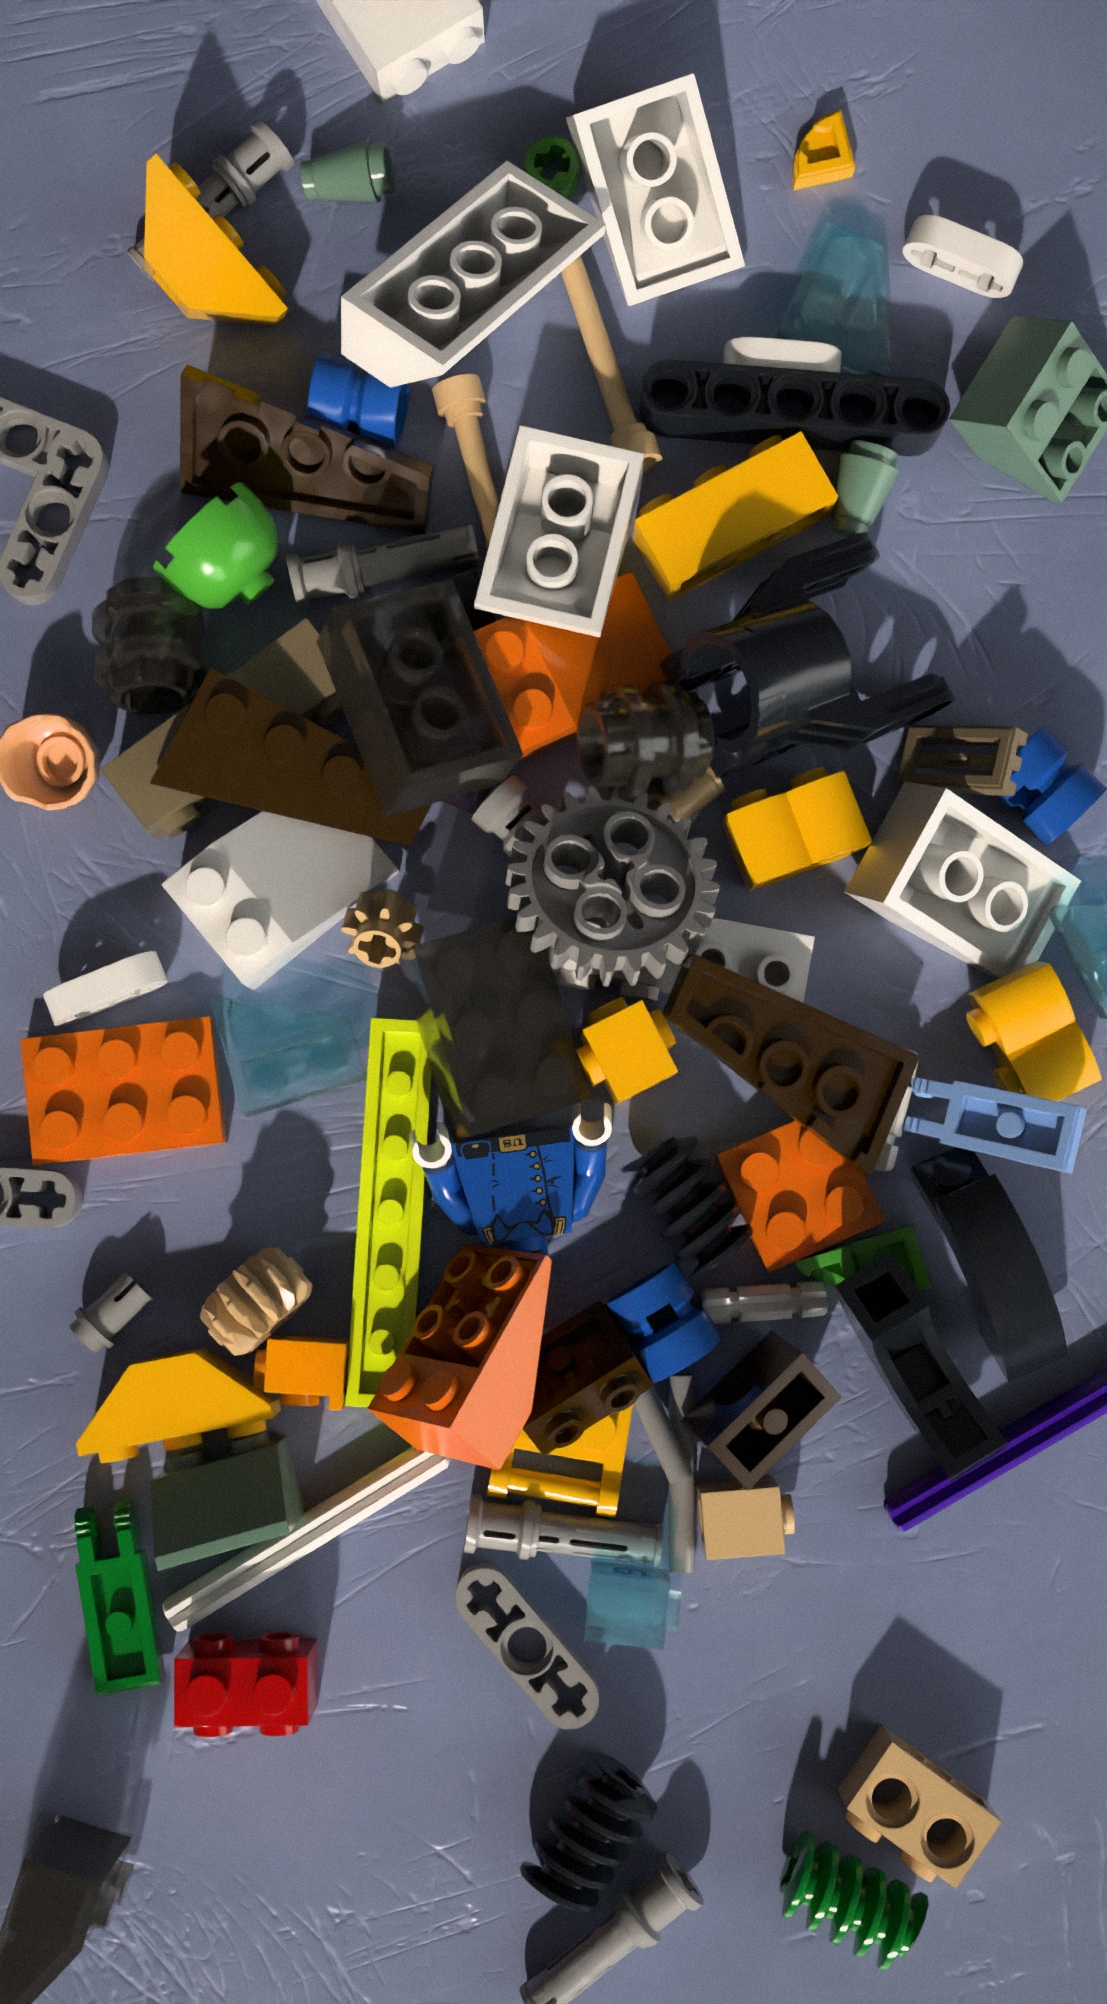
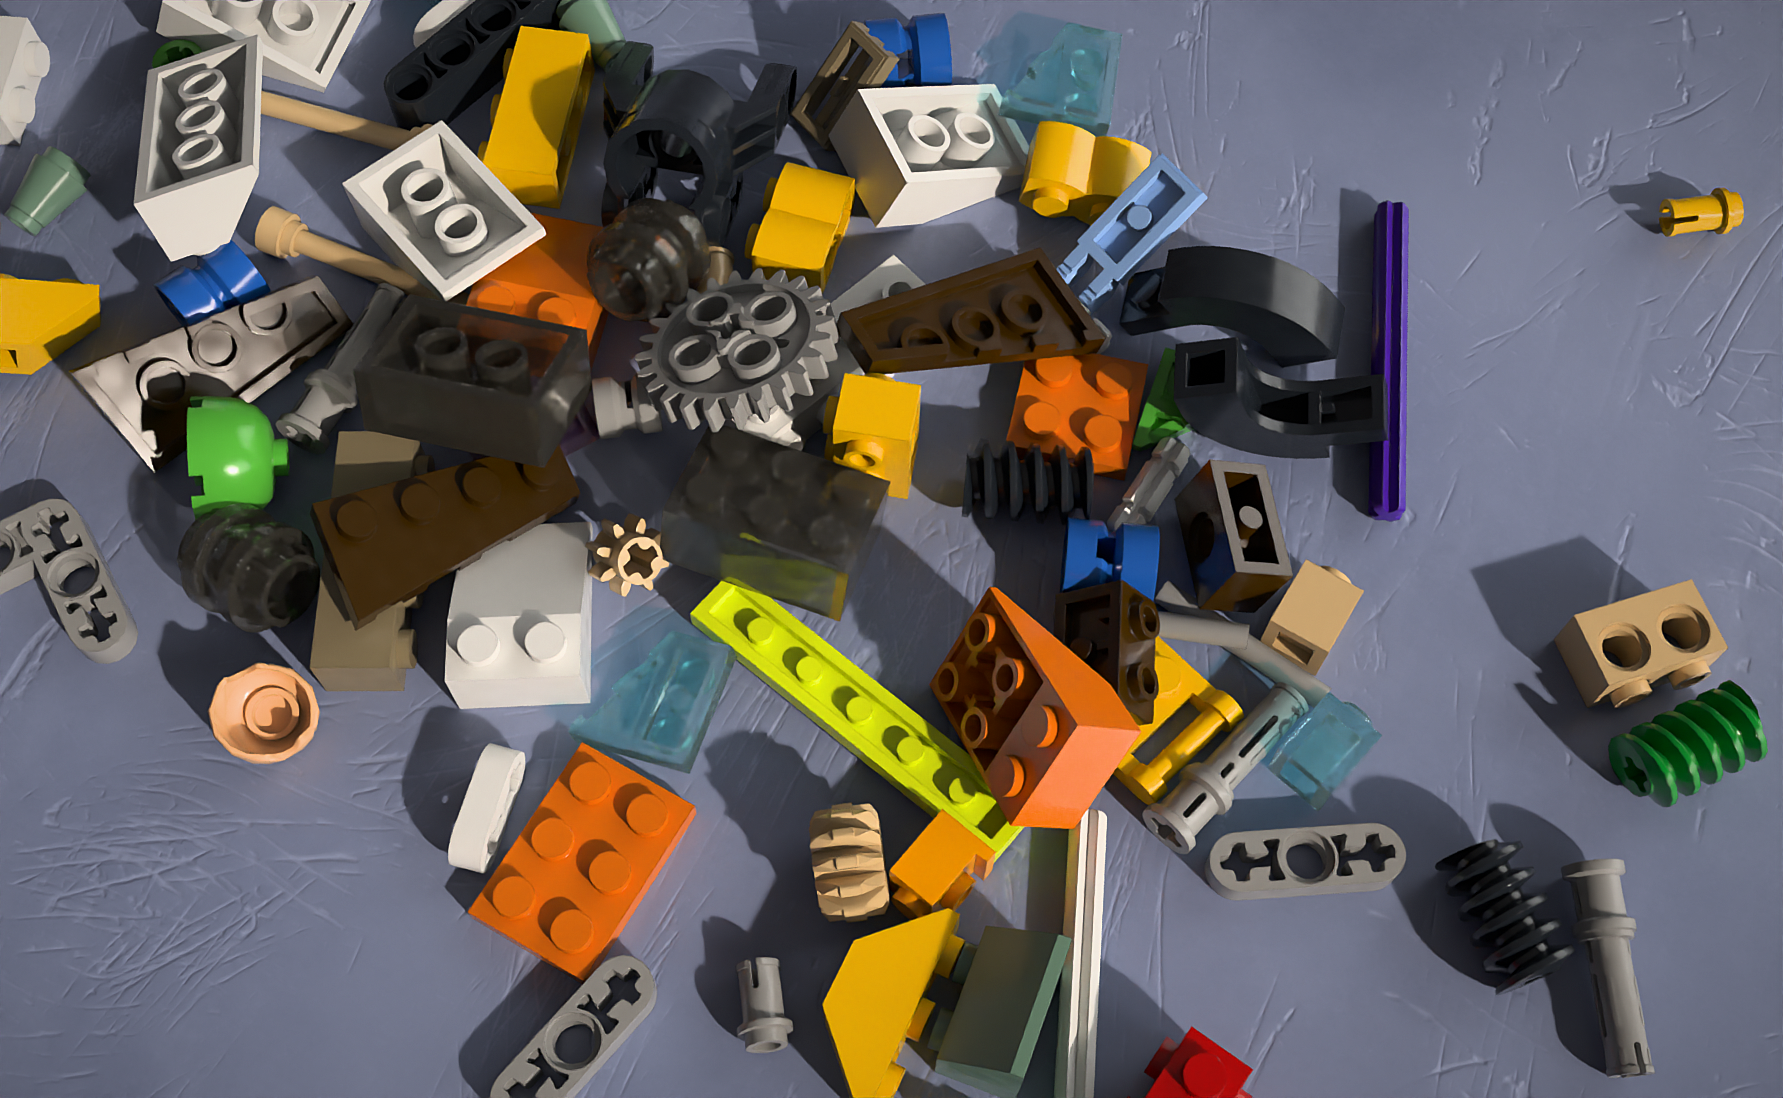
camera: 55 degrees left, 20 degrees down
(518, 1183) = (913, 591): blue torso -> none

